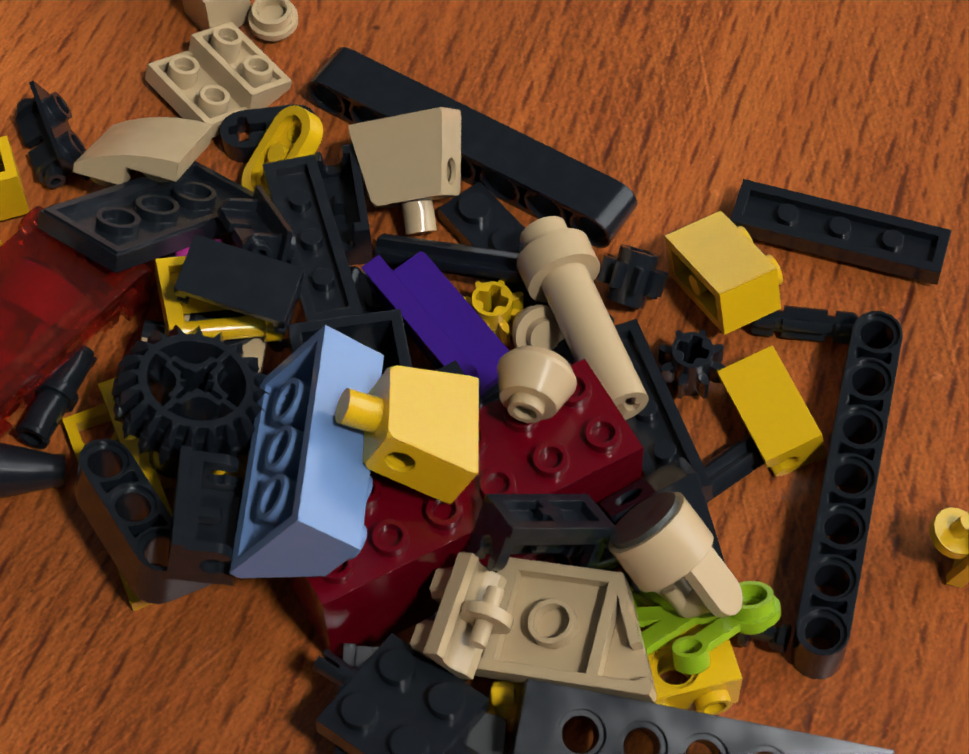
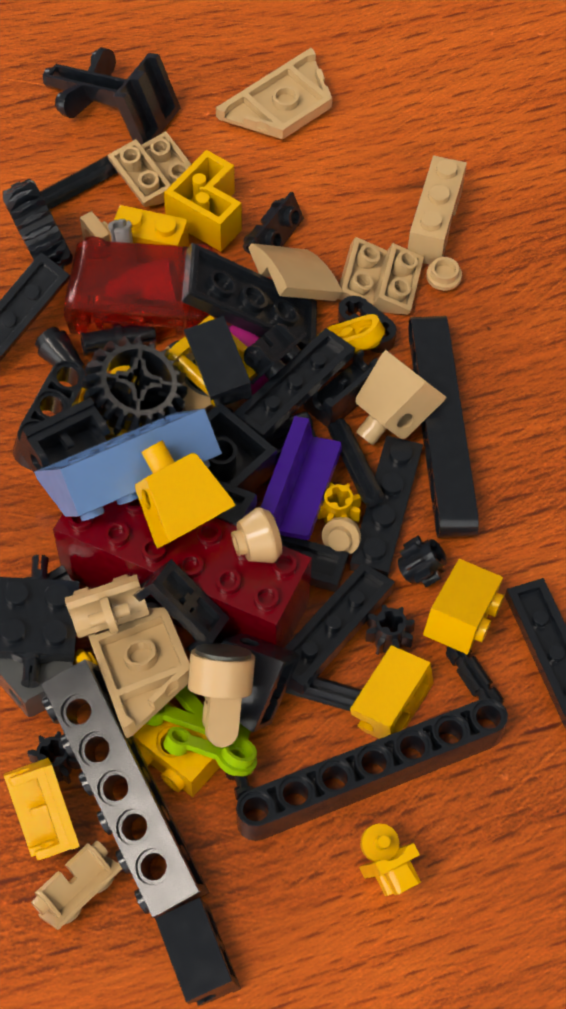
camera: 50 degrees right, 0 degrees up
(560, 271) = (382, 516): tan piece -> none

